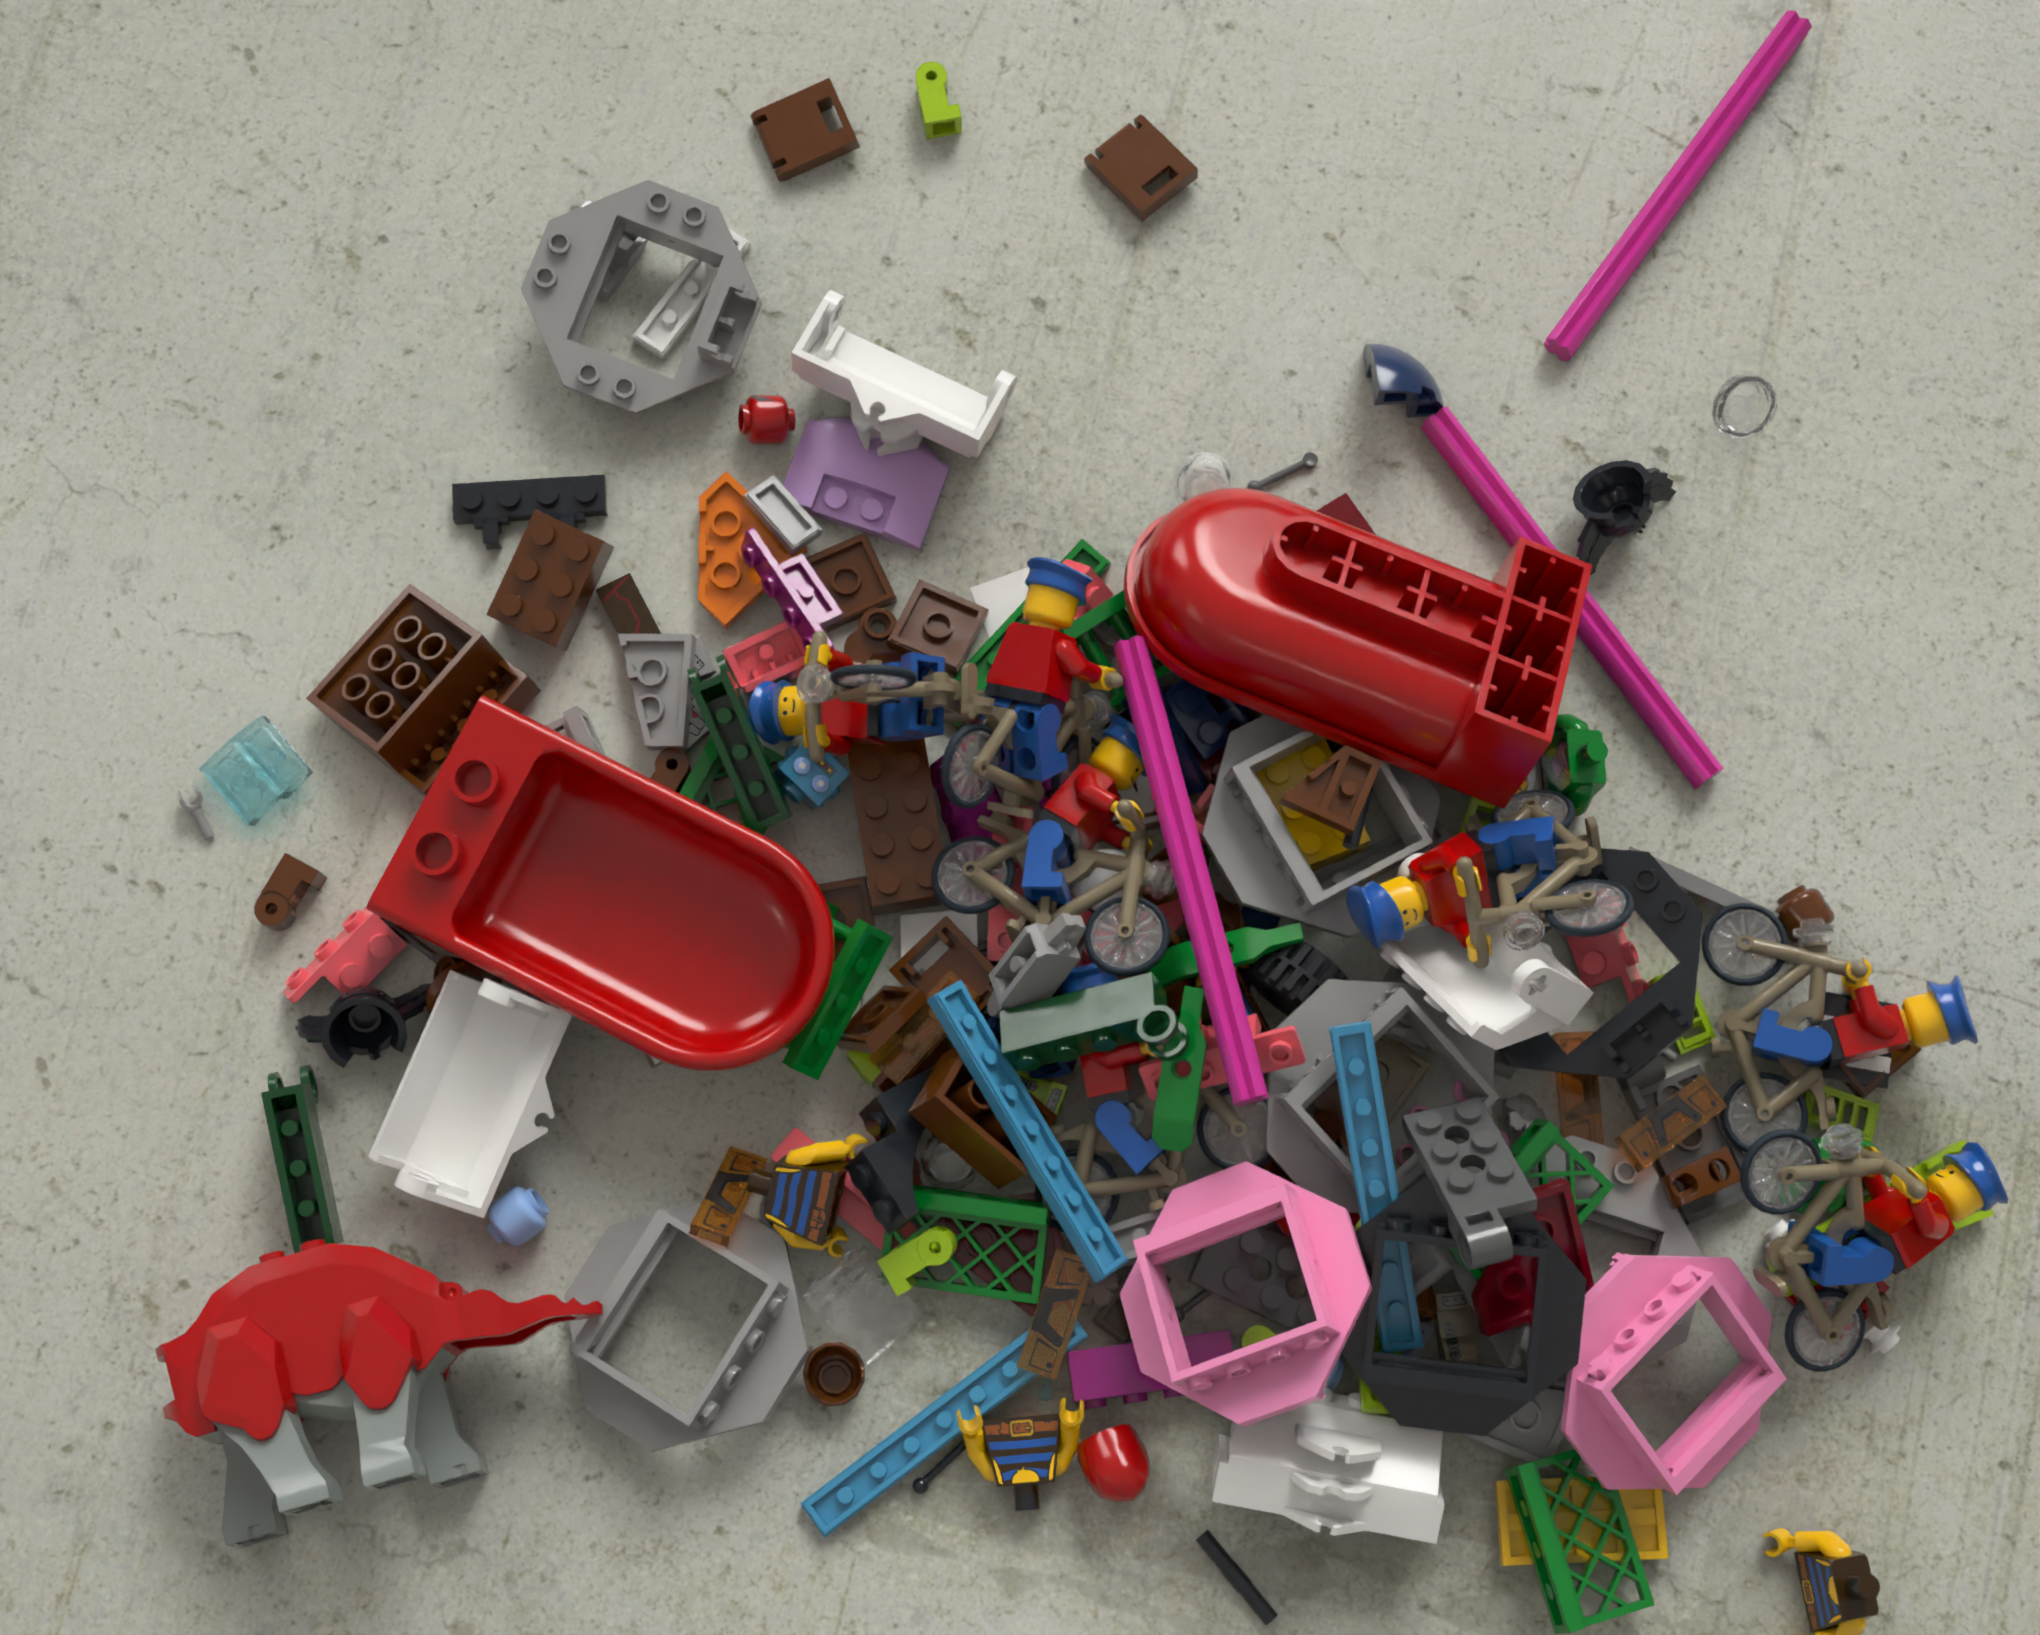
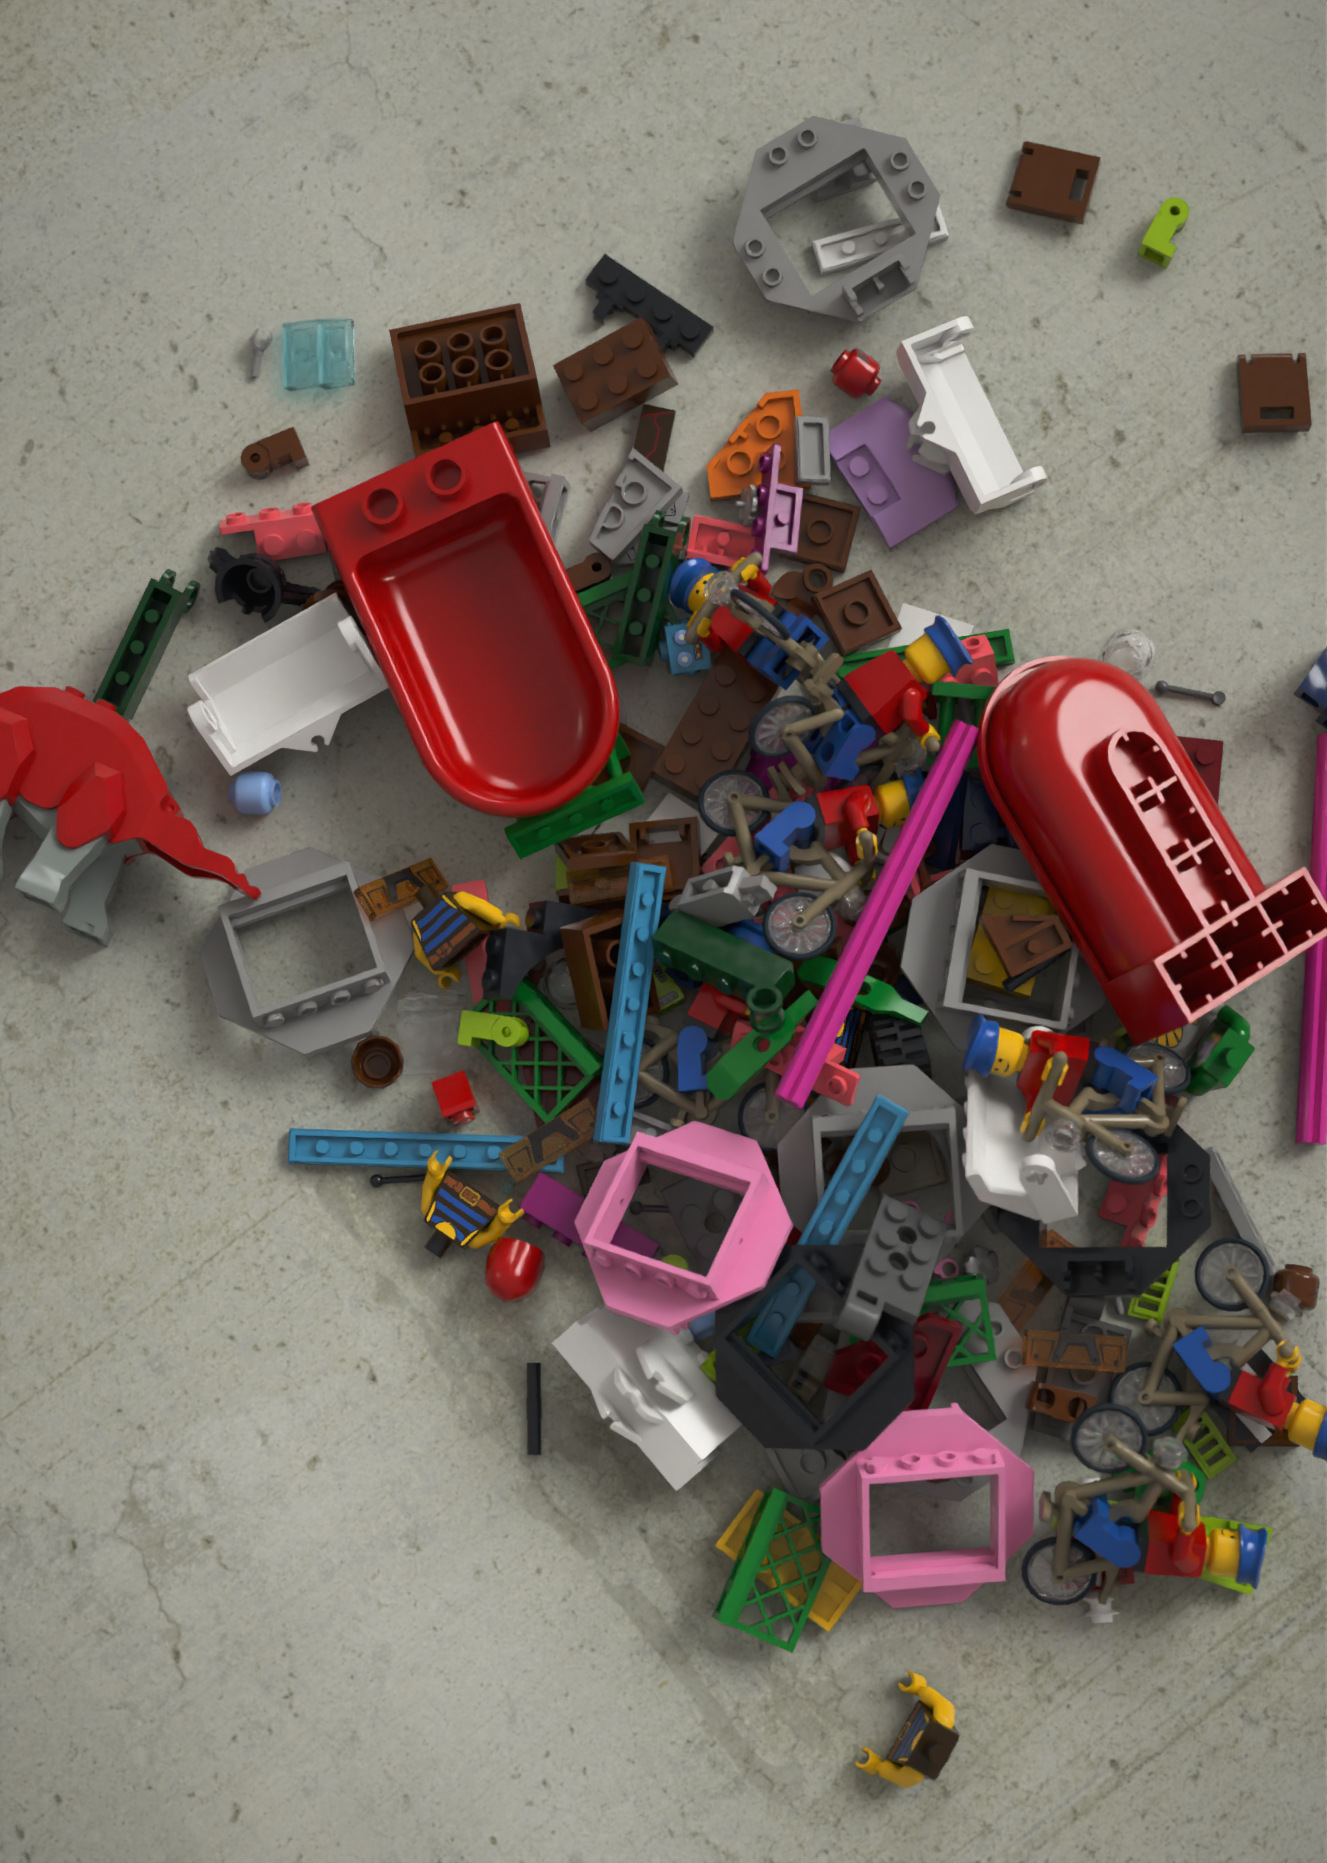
camera: 45 degrees right, 5 degrees up
(765, 604) = (747, 505): none -> light grey plant
(934, 1348) = (456, 1098): none -> red slope

